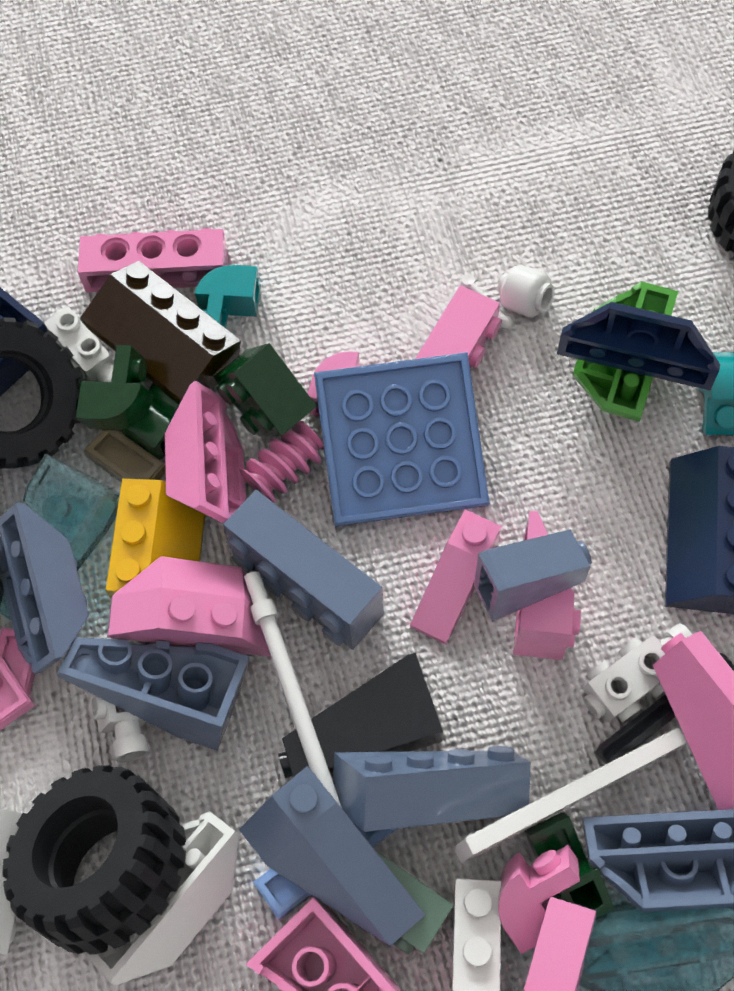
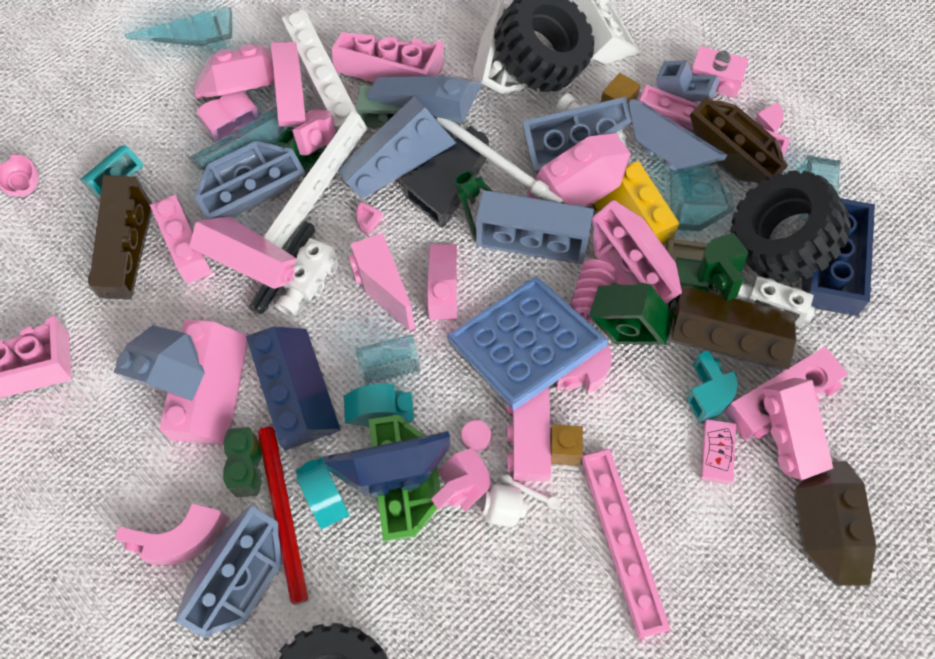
camera: 150 degrees right, 0 degrees up
(45, 730) = (621, 87): none -> pearl gold brick
(177, 208) = (797, 428): none -> bright pink brick
(199, 143) = (837, 525): none -> dark brown wedge
(266, 245) = (718, 451): none -> bright pink tile
(358, 656) = (469, 188): none -> dark green plant
(417, 221) = (624, 544): none -> bright pink tile
(421, 312) = (566, 444): none -> pearl gold brick
(513, 727) = (367, 217): none -> bright pink tile
(514, 378) = (476, 435): none -> bright pink tile
(529, 571) = (388, 247): sand blue slope -> none
(553, 312) = (464, 479): none -> bright pink brick
(581, 493) = (388, 359): none -> clear light blue brick
(622, 446) = (376, 402): none -> teal brick

